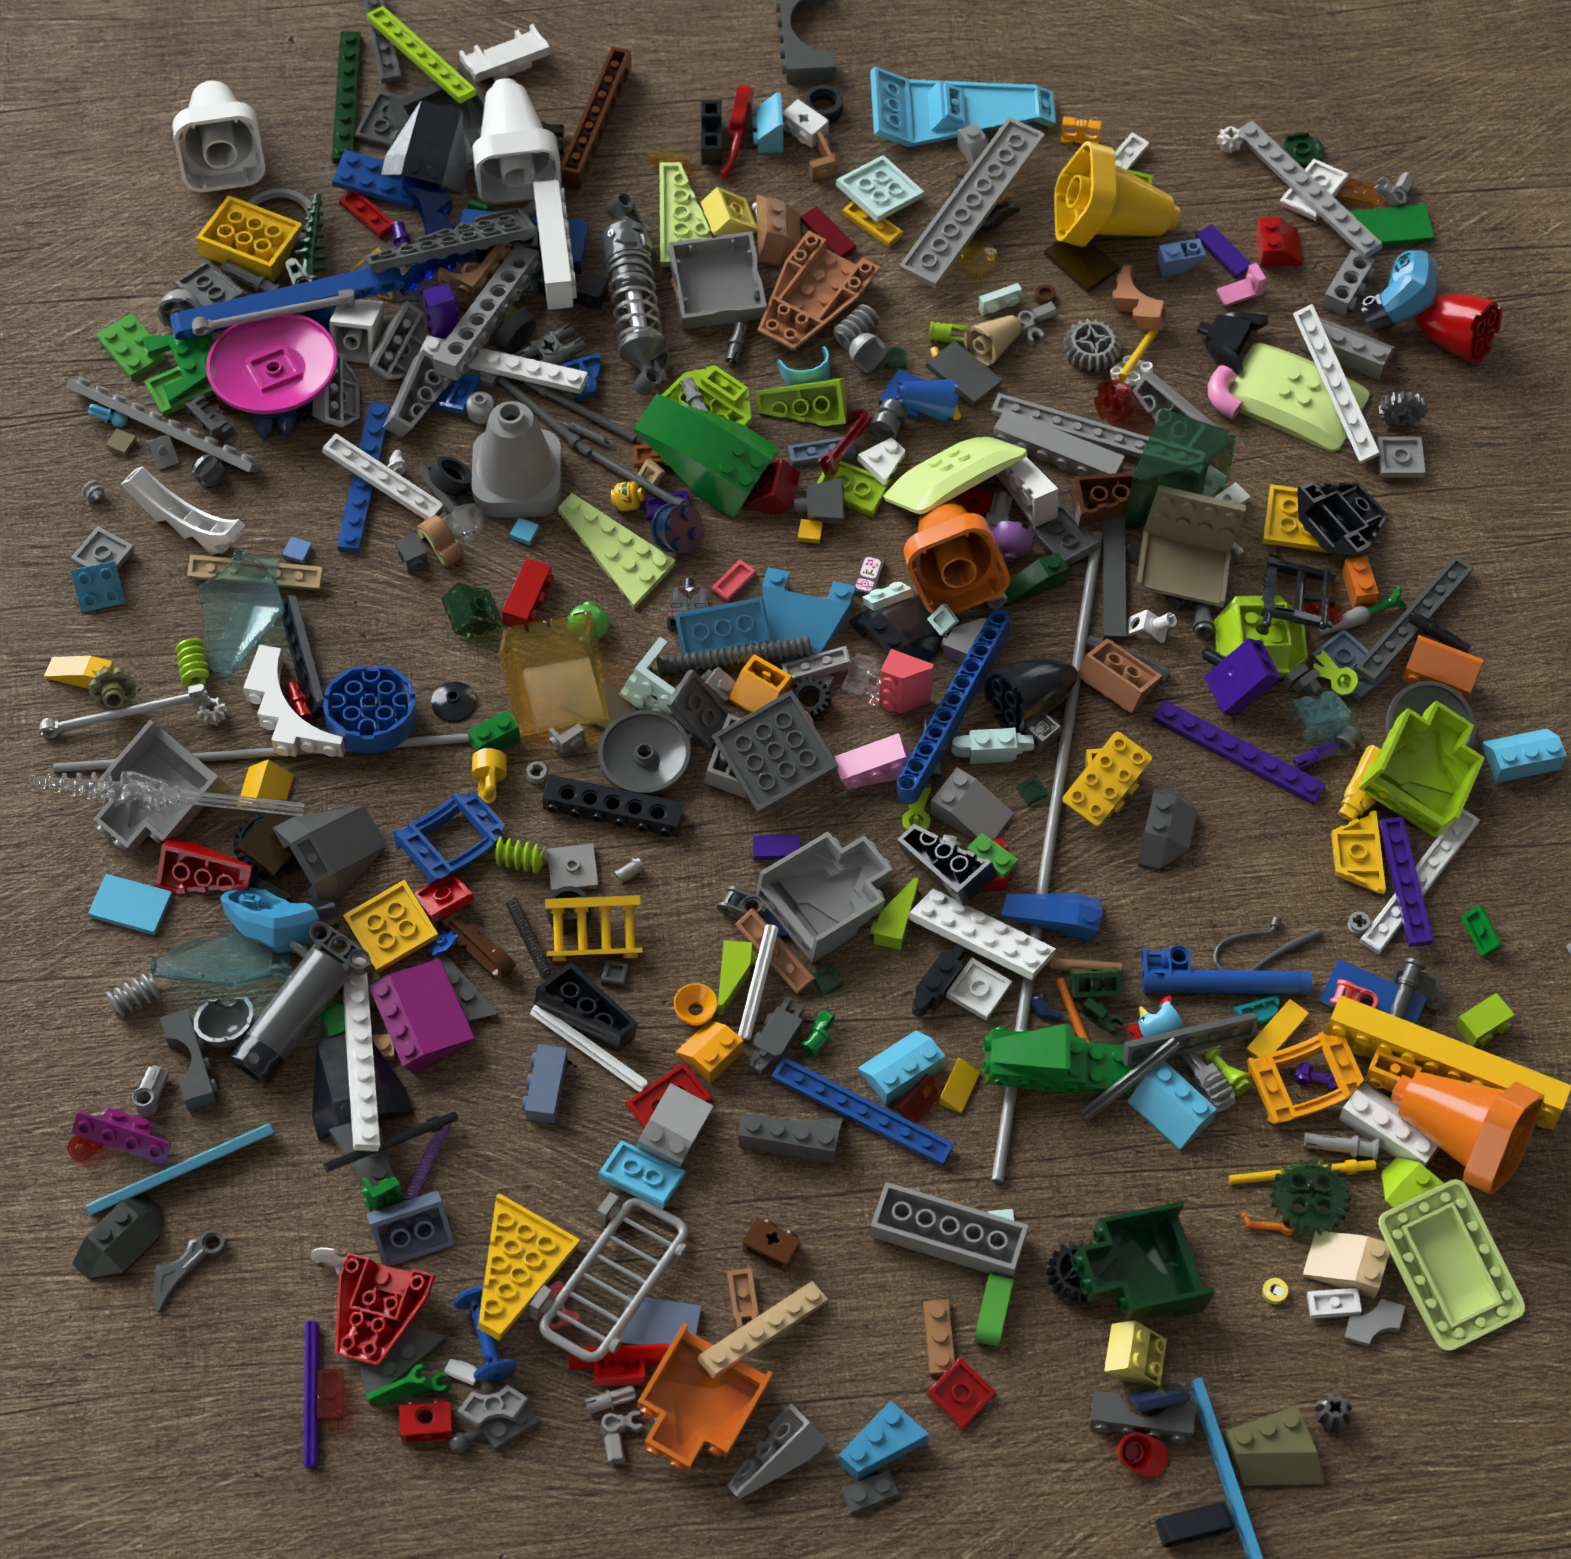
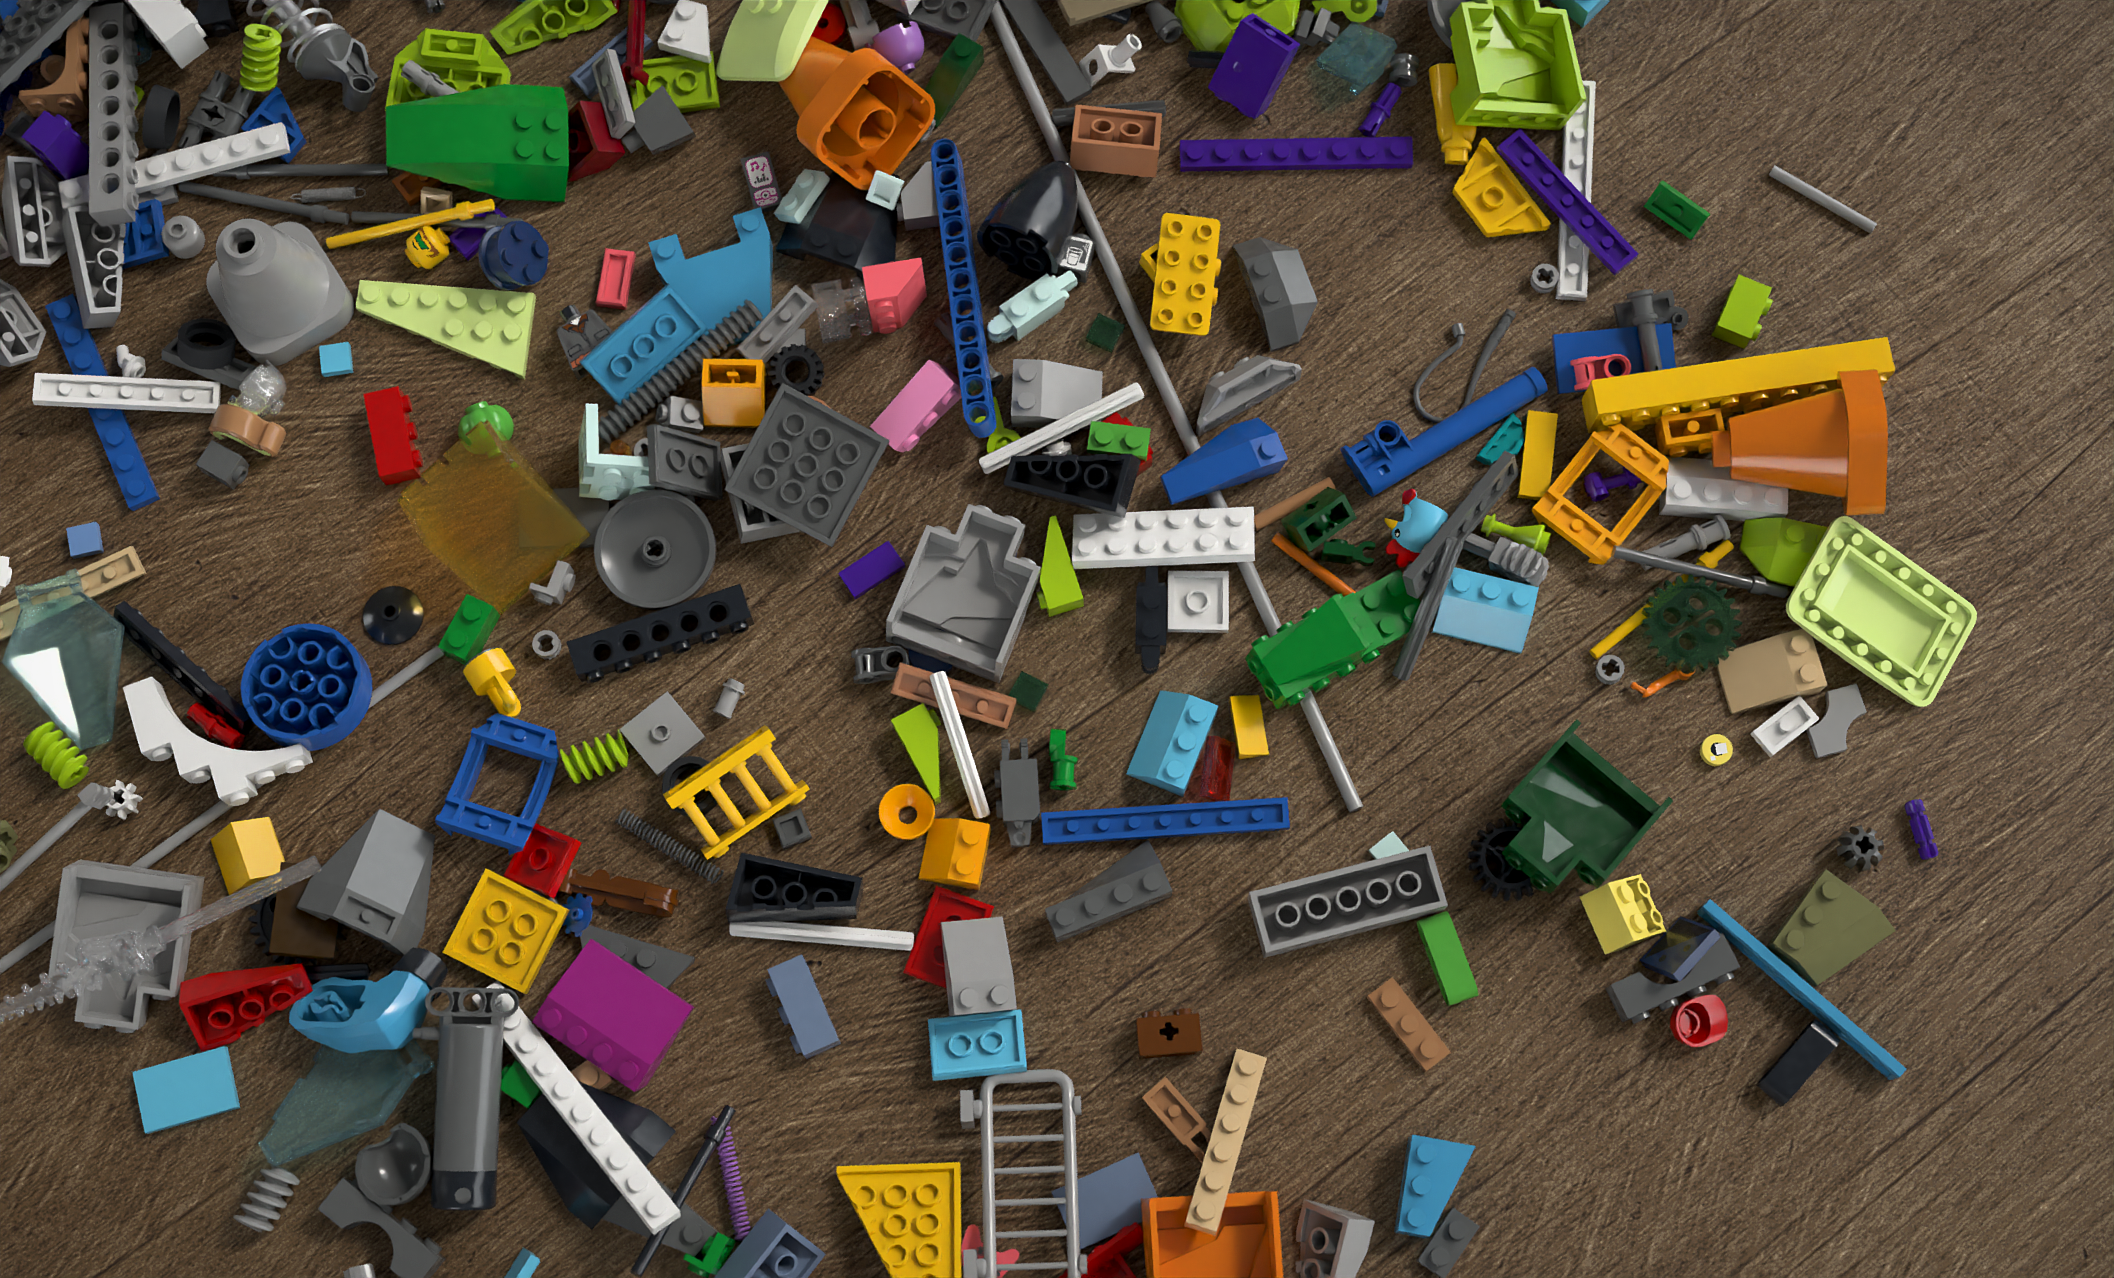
camera: 30 degrees left, 15 degrees up
(471, 610) = (341, 494): clear green slope -> none
(600, 328) = (260, 58): none -> lime piece
(662, 485) = (462, 211): none -> yellow bar
(807, 468) = (613, 93): none -> light grey tile
(810, 531) = (662, 166): yellow tile -> none
(960, 1393) = (1471, 1073): red tile -> none
(962, 827) = (1062, 427): none -> white axle
(1043, 1009) = (1278, 581): dark blue arm -> none
(1100, 875) = (1242, 388): none -> light grey wedge
(1234, 1203) = (1615, 677): none -> light grey bush
(1375, 1200) = (1753, 584): none -> dark grey bar
(1388, 1428) = (1921, 829): none -> dark purple axle

